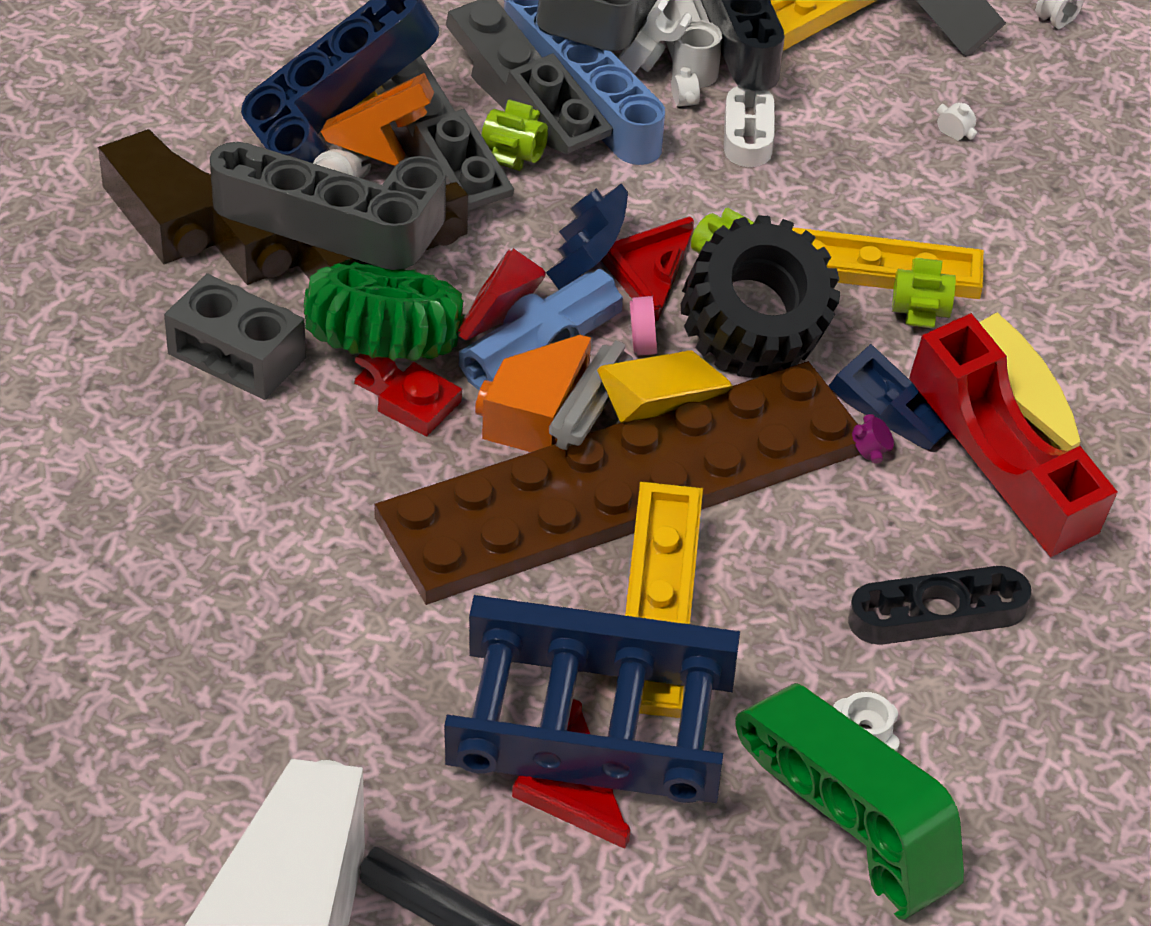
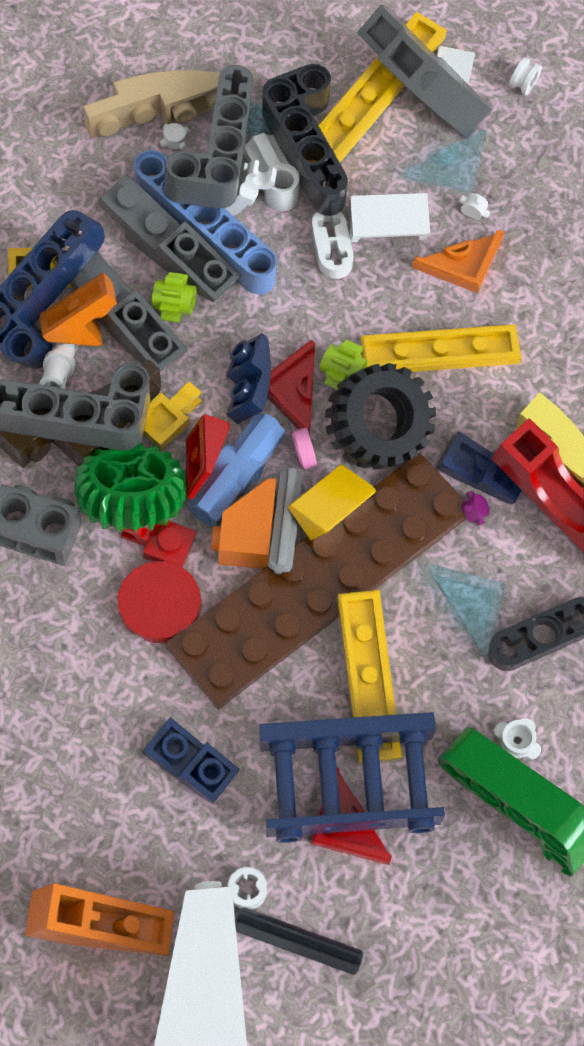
camera: 15 degrees left, 20 degrees up
(143, 806) = (98, 921): none -> orange slope
(364, 655) = (190, 761): none -> dark blue slope
(381, 457) = (158, 601): none -> red tile
(396, 806) = (260, 887): none -> white bush
(464, 258) = (168, 418): none -> yellow plate
(685, 88) = (280, 219): white piece -> none
(834, 101) = (388, 216): none -> white hinge
(839, 546) = (472, 601): none -> clear light blue tile
(923, 293) = (484, 377): lime gear -> none
(925, 177) = (463, 262): none -> orange tile
(935, 77) = (452, 166): none -> clear light blue tile

